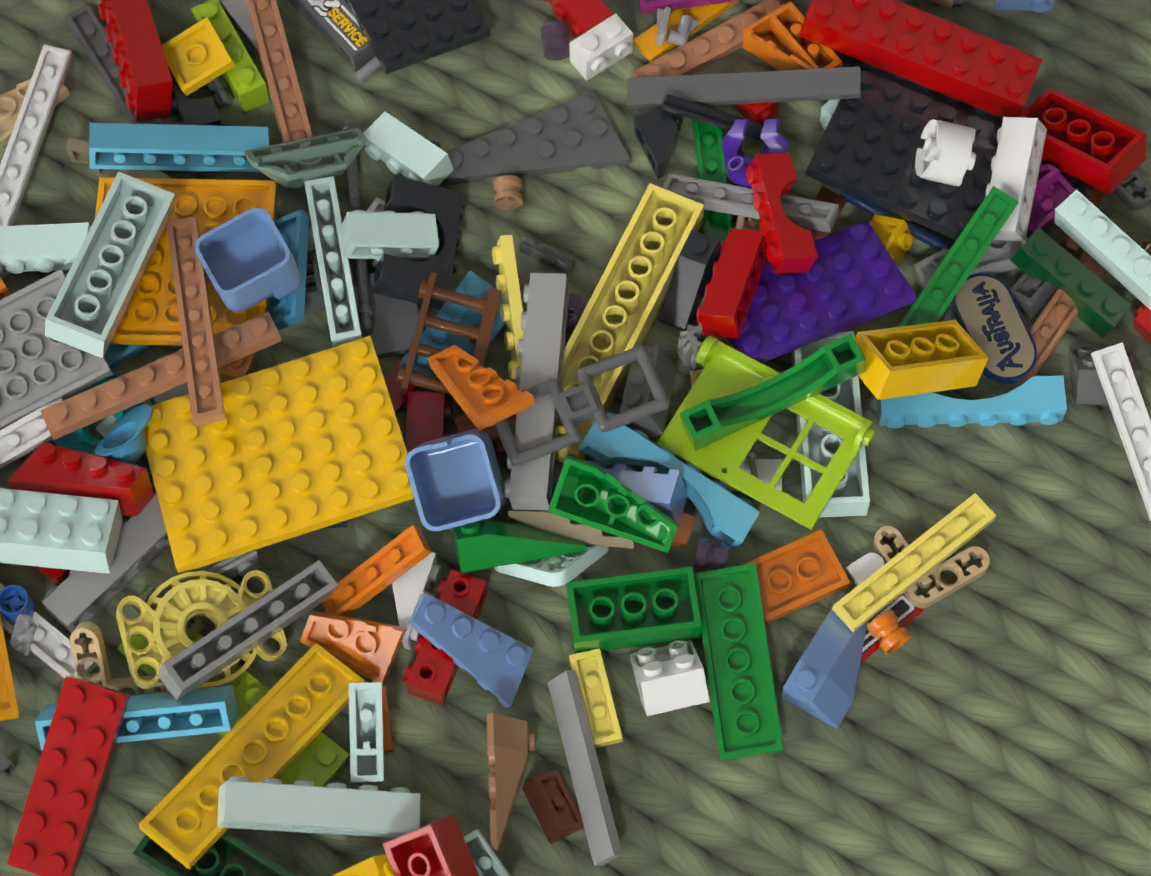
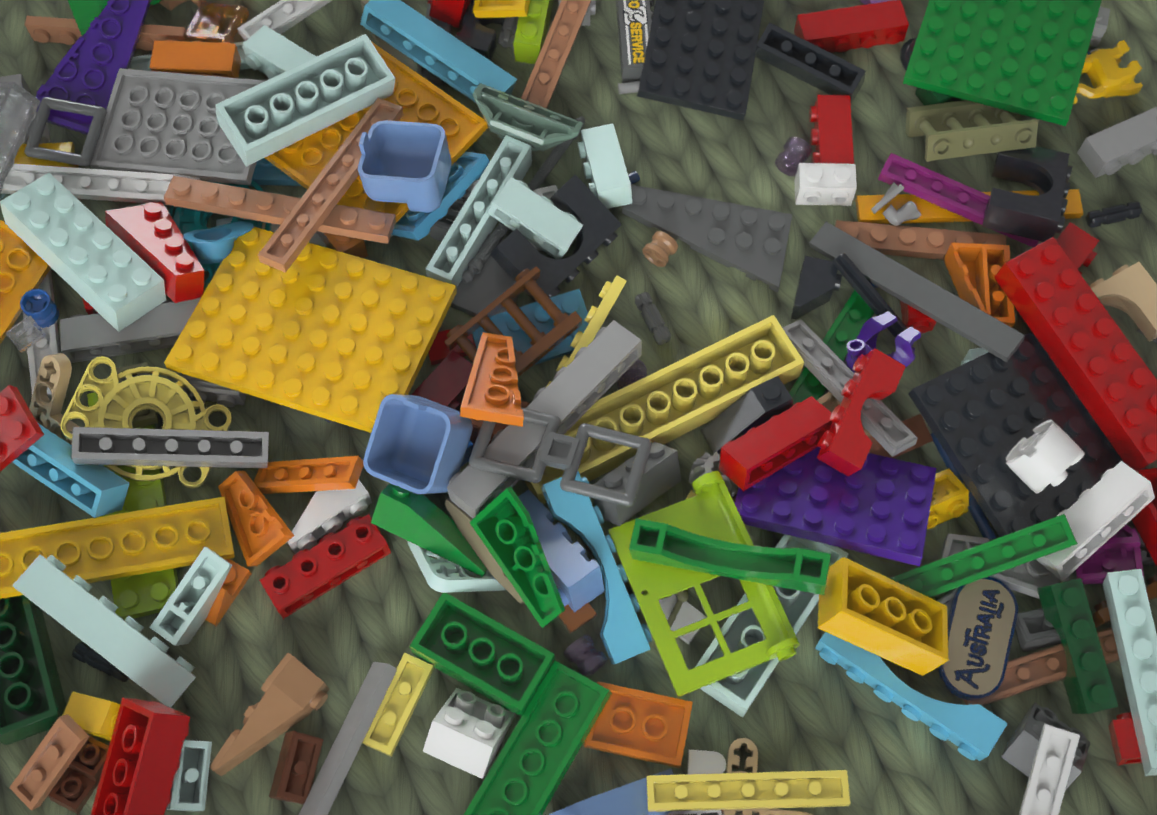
camera: 35 degrees right, 0 degrees up
(323, 845) = (89, 656): none -> black axle
(481, 650) = (336, 594): medium blue wing -> none

